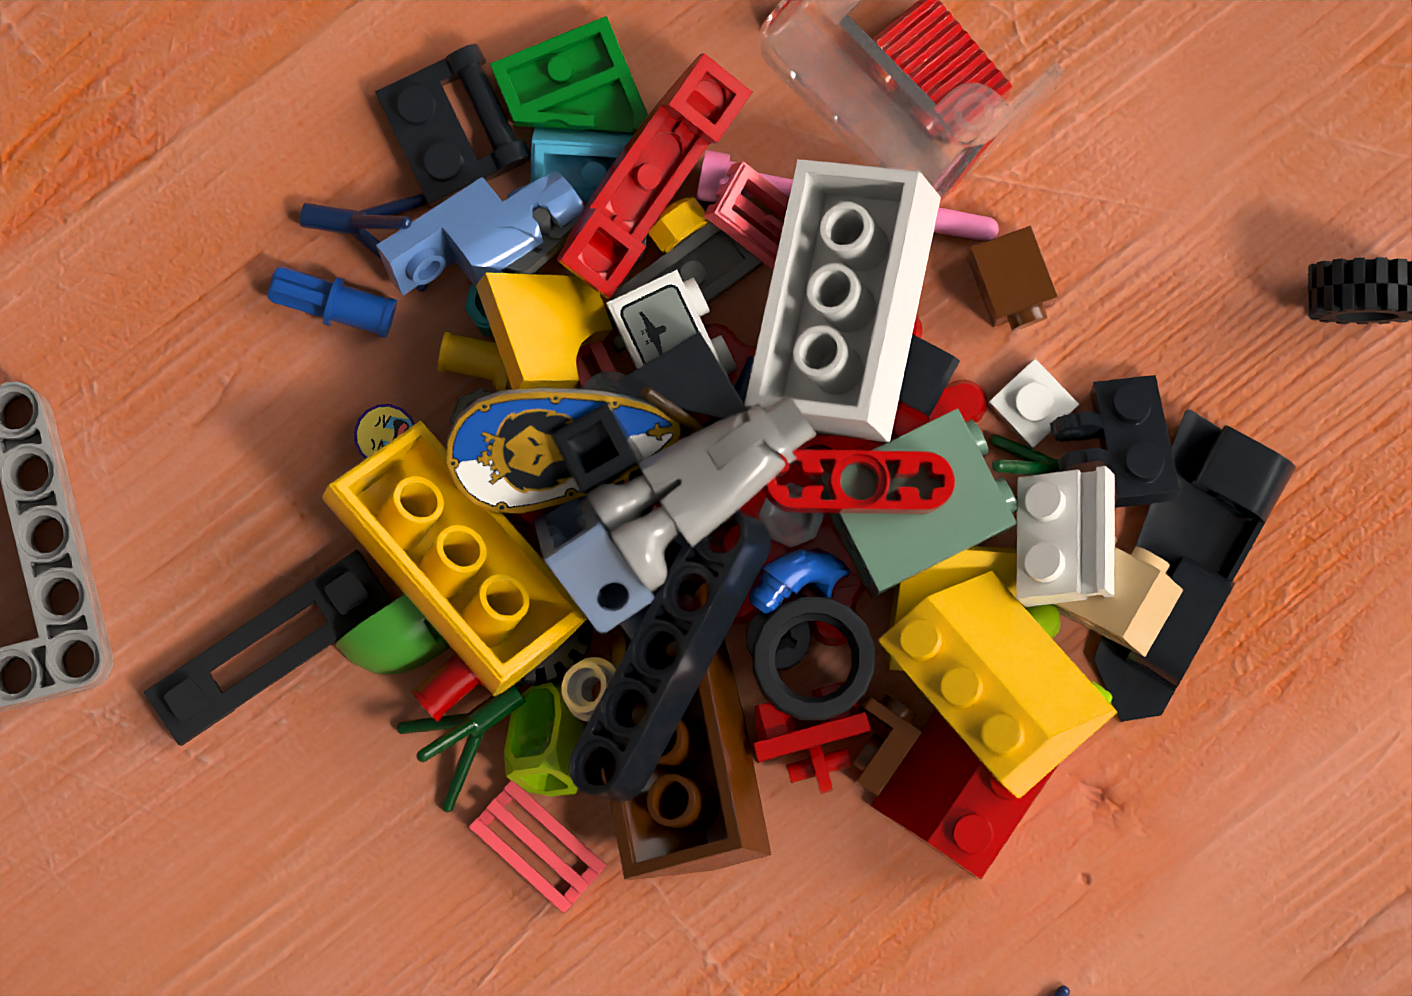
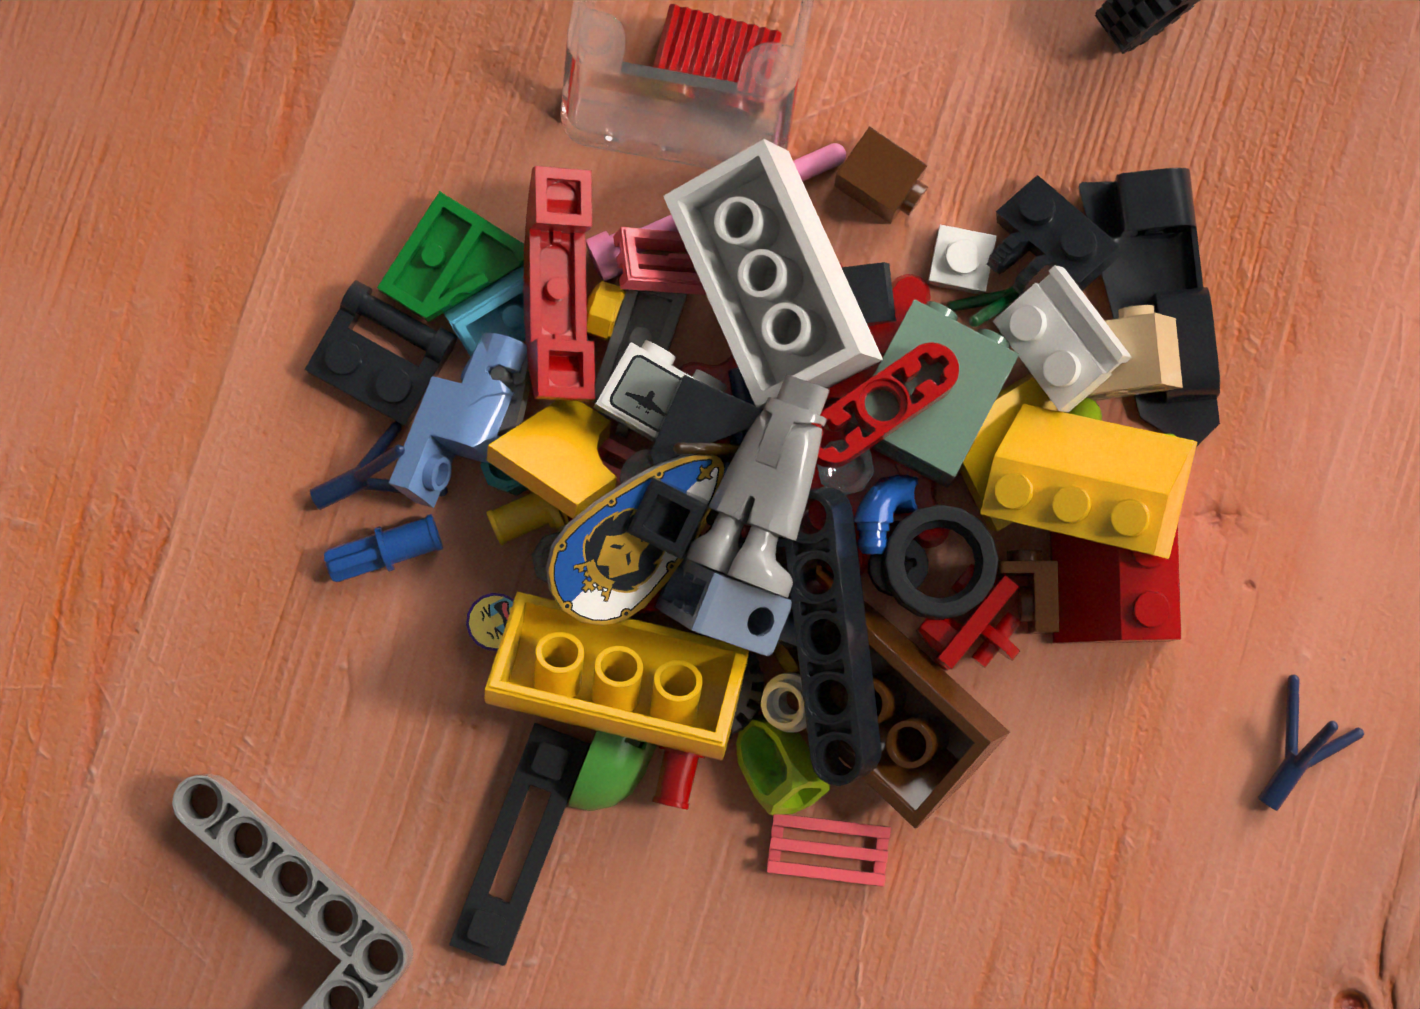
camera: 35 degrees left, 0 degrees up
(468, 724) = (711, 796): dark green plant -> none

